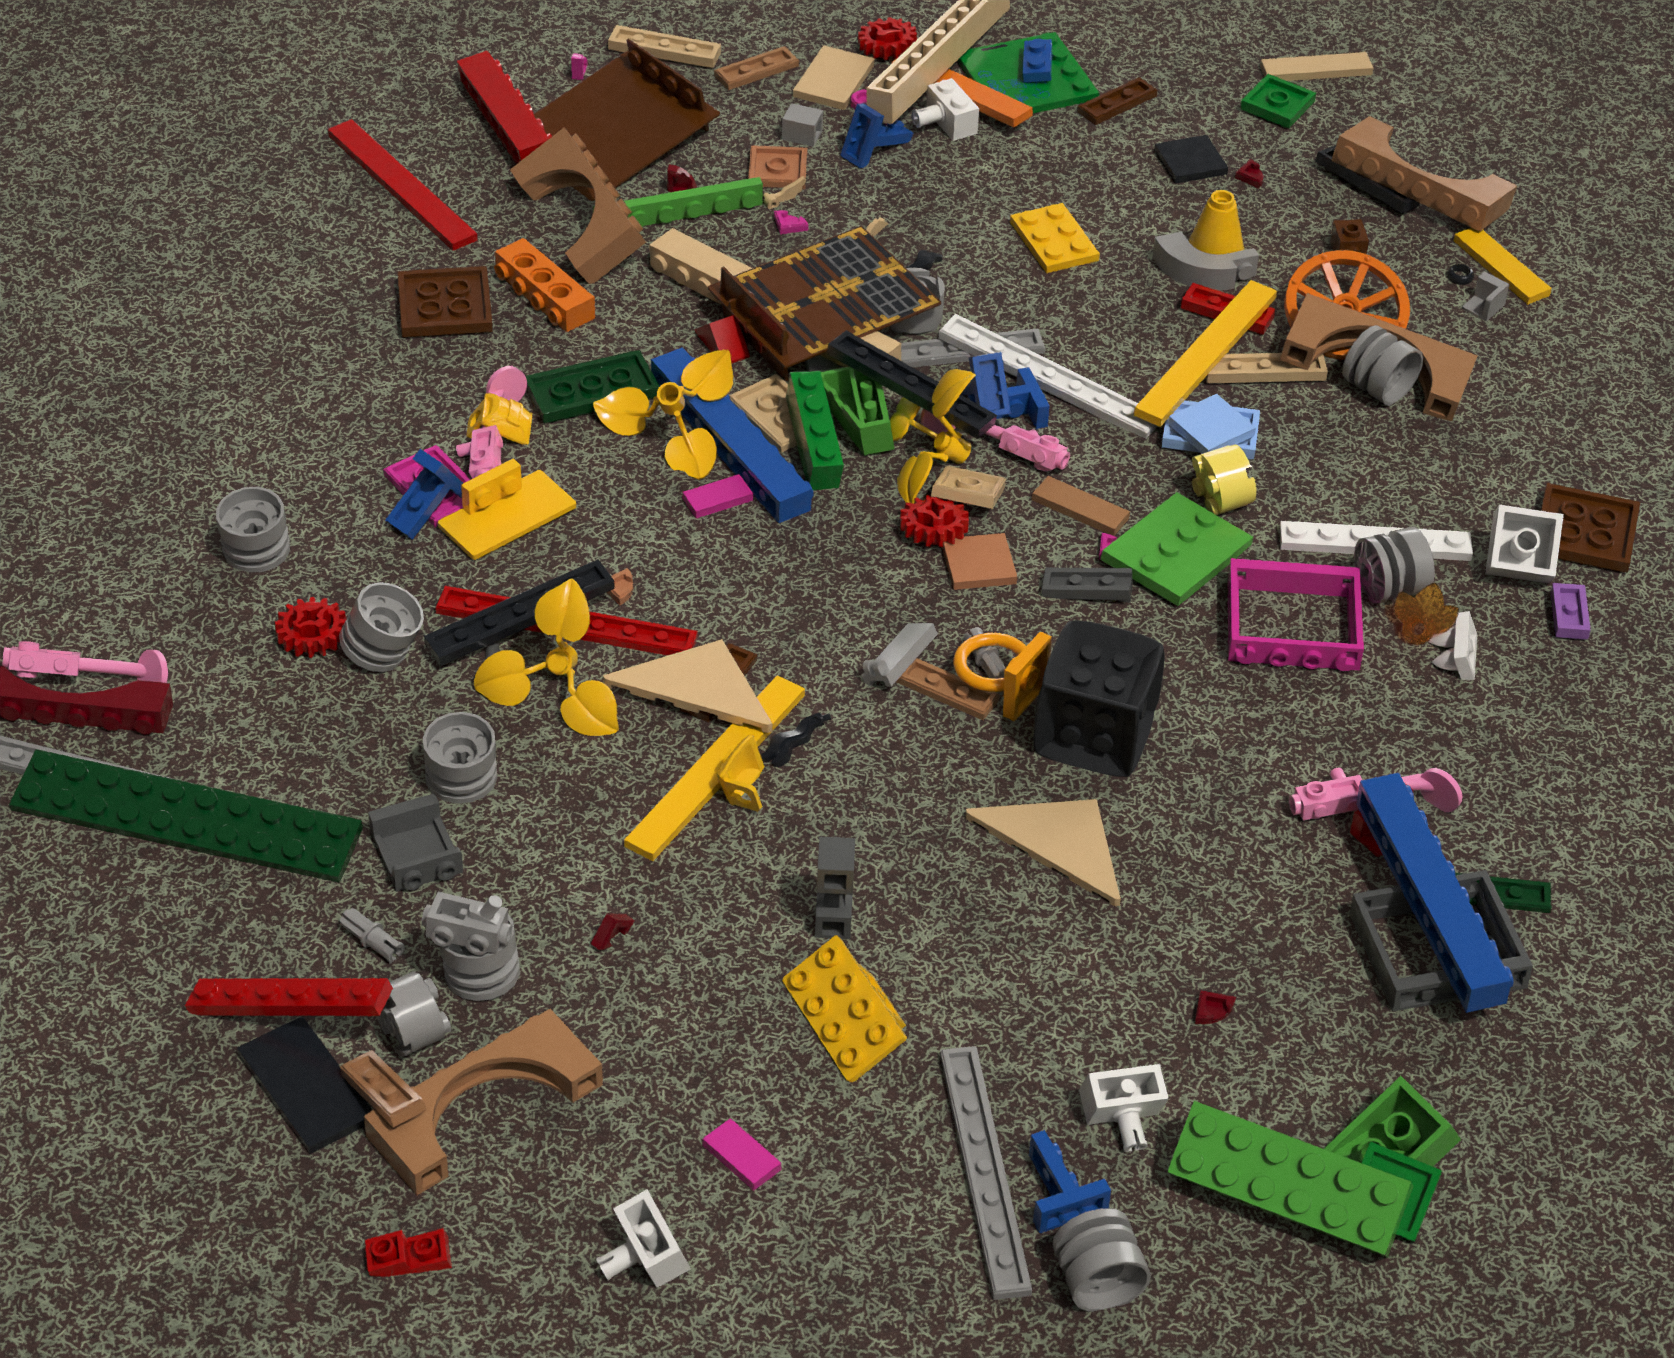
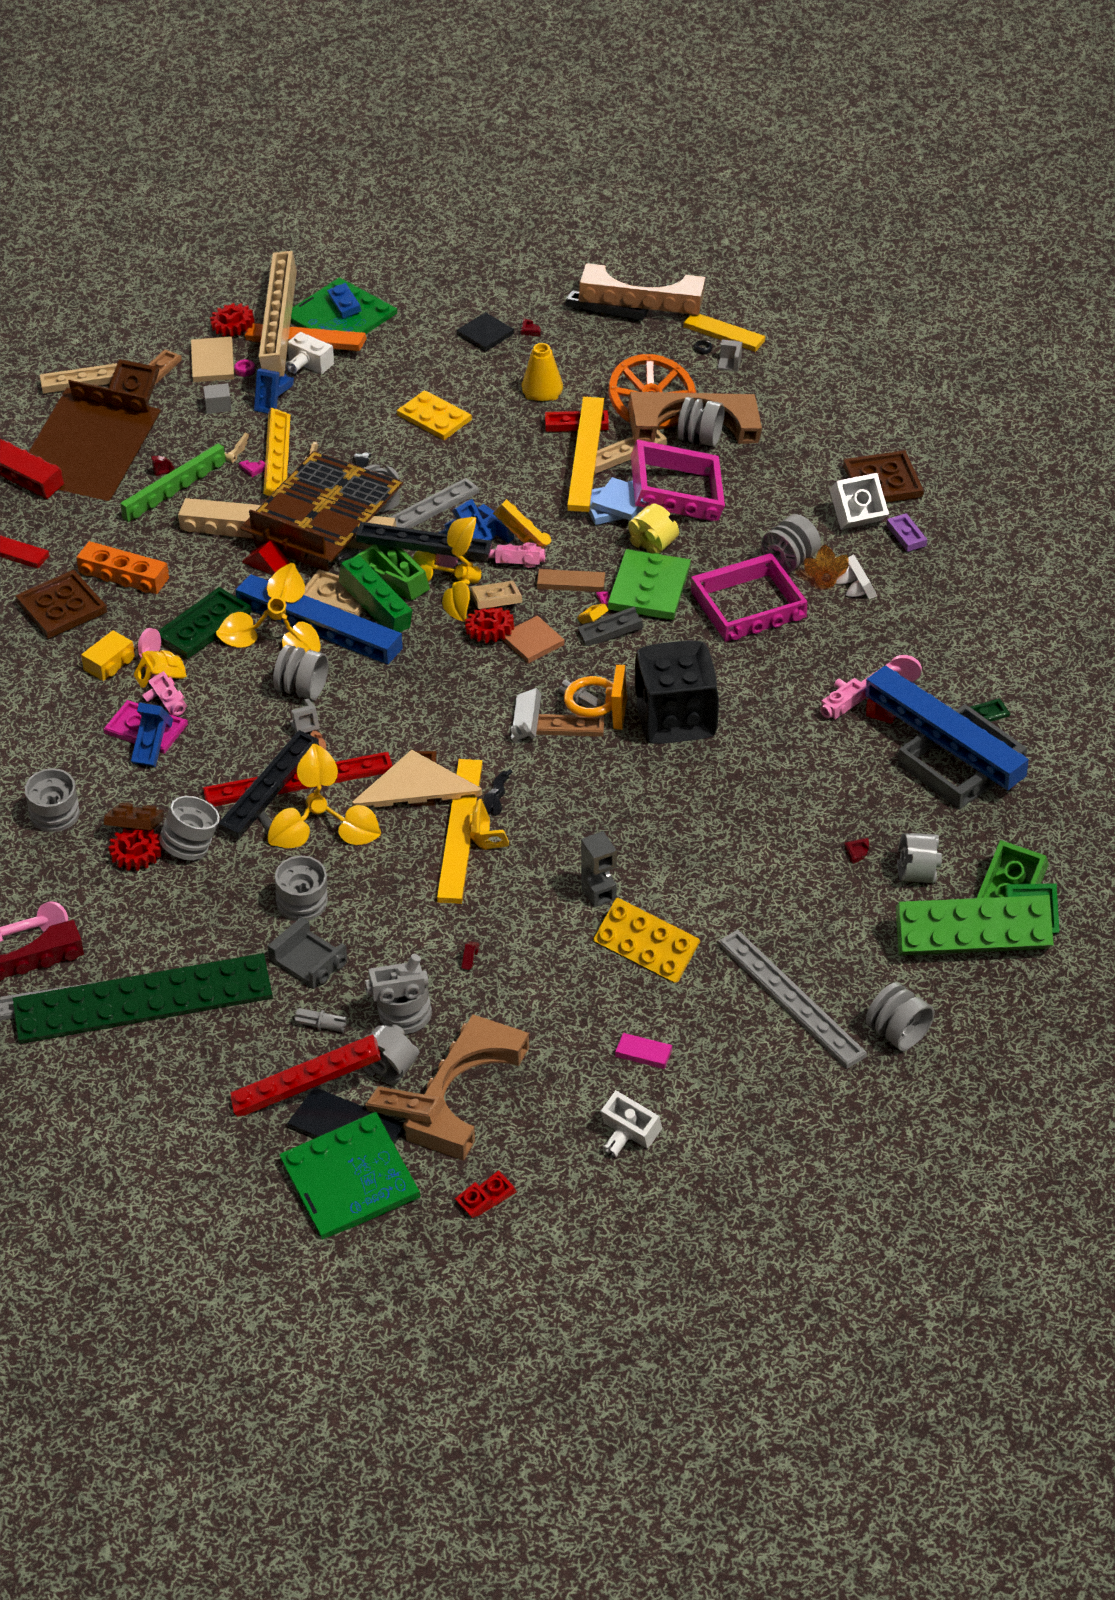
camera: 25 degrees left, 0 degrees up
(259, 1150) = (349, 1175): none -> green plate
(328, 586) = (134, 817): none -> reddish brown plate
(450, 382) = (108, 655): none -> yellow brick
(503, 508) = (205, 724): yellow bracket -> none
(578, 66) = (33, 412): dark pink tile -> none
(611, 232) = (148, 515): medium nougat arch -> none
(622, 549) = (305, 718): none -> light grey panel
(654, 489) = (300, 672): none -> light grey wheel
(716, 70) = (134, 378): none -> reddish brown plate
(717, 496) = (340, 660): dark pink tile -> none
(777, 165) = (218, 430): nougat tile -> none
(832, 208) = (276, 450): none -> yellow tile
(1048, 374) = (530, 508): white tile -> none
(1053, 411) = (520, 525): none -> yellow plate
(1058, 836) = (700, 786): tan tile -> none
(1066, 1196) = (853, 993): blue bracket -> none
(1075, 557) = (592, 613): none -> yellow tile
(1117, 101) = (411, 310): reddish brown tile -> none
(1124, 1098) = (847, 922): white brick -> none
(1189, 265) = (538, 401): light grey arch -> none
(1278, 100) = (515, 273): green plate -> none
(1280, 1053) = (918, 857): none -> light grey brick
(1317, 402) = (679, 460): none -> dark pink window
(1318, 66) = (523, 243): tan tile -> none
(1343, 539) = (752, 536): white plate -> none
(1349, 236) = (622, 347): reddish brown brick -> none

